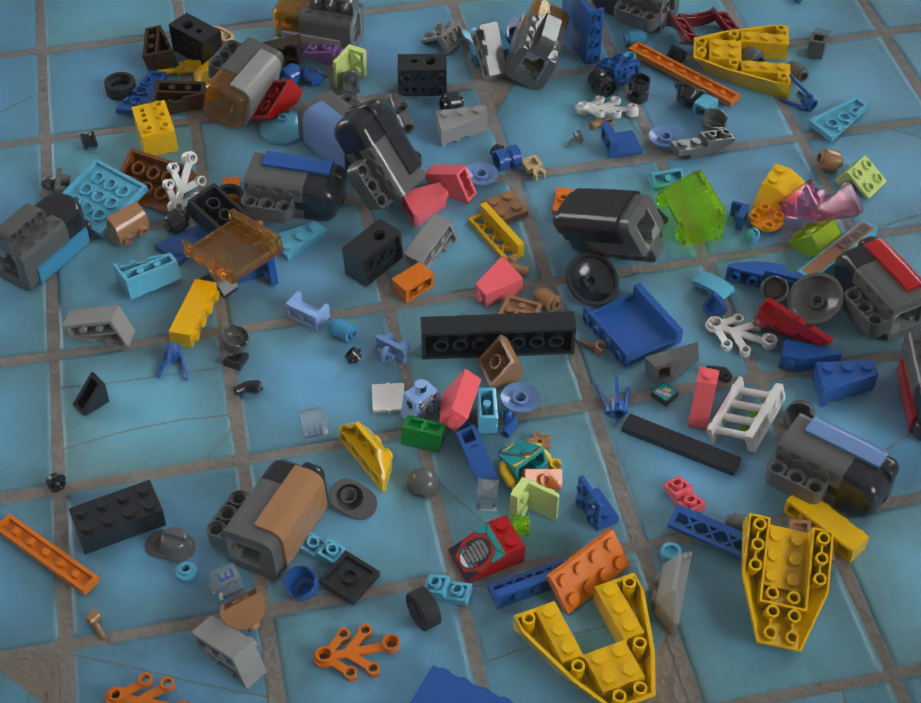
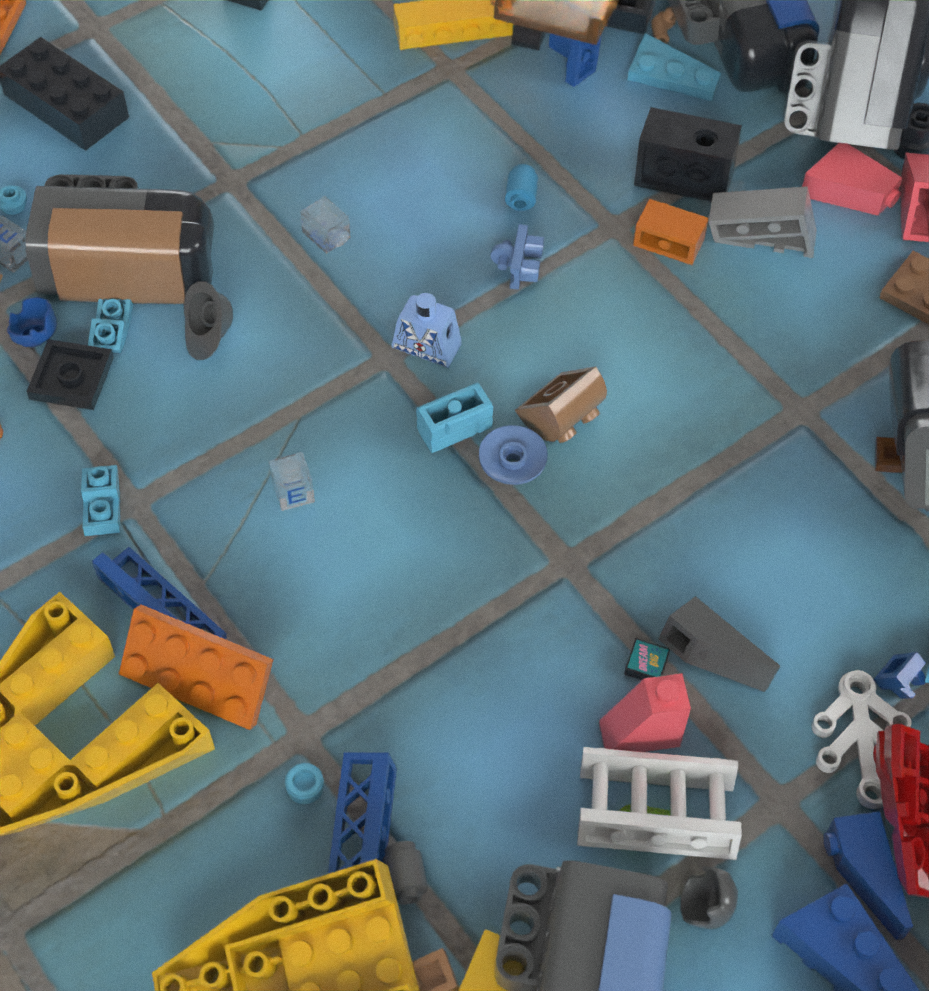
camera: 65 degrees right, 10 degrees up
(56, 482) = (95, 15): black plate -> none
(170, 544) = (50, 160): dark grey piece -> none
(172, 354) = (369, 29): blue plant -> none
(235, 338) = (429, 77): dark grey hair -> none
(236, 361) = (400, 102): black tile -> none
(247, 385) = (358, 130): black arm -> none
(306, 313) = (534, 134): light blue panel -> none
(353, 355) = (480, 220): black plate -> none
(368, 452) = (296, 312): yellow wedge -> none
(387, 397) = (434, 282): white piece -> none
(422, 433) = (372, 356): green hinge -> none
(423, 482) = (284, 396): dark grey hair -> none
(423, 608) = (36, 476): black tyre -> none
(458, 400) = (442, 370): coral slope -> none
(473, 334) = (636, 399): black brick -> none
(475, 451) = (361, 432): blue slope -> none
(488, 550) = (192, 525): slope -> none
(497, 283) = (740, 337): coral slope -> none
(501, 231) = (858, 304): yellow fence -> none
(511, 423) = (459, 465): blue arm -> none
(519, 305) = (704, 380): medium nougat plate -> none
(521, 524) = (255, 547): clear neon green wheel -> none
(522, 270) = (798, 351): medium nougat arm -> none
(523, 456) = (374, 500): teal torso -> none
(535, 498) = (295, 526): yellowish green bracket -> none
(539, 437) = (441, 524): medium nougat plate -> none
(546, 477) = (353, 541): plate -> none
(549, 299) = (751, 416): medium nougat brick -> none
(595, 505) = (339, 633): blue bracket -> none
(597, 348) = (693, 519): medium nougat hand -> none
(598, 273) = (823, 434): black dish -> none
(616, 407) = (572, 596): blue plant -> none
(633, 326) = (767, 561): blue panel -> none
(671, 590) = (214, 808): light grey wedge -> none
(681, 444) = (546, 728): black tile -> none
(681, 493) = (432, 766): coral slope -> none
(724, 374) = (749, 735): black arm -> none

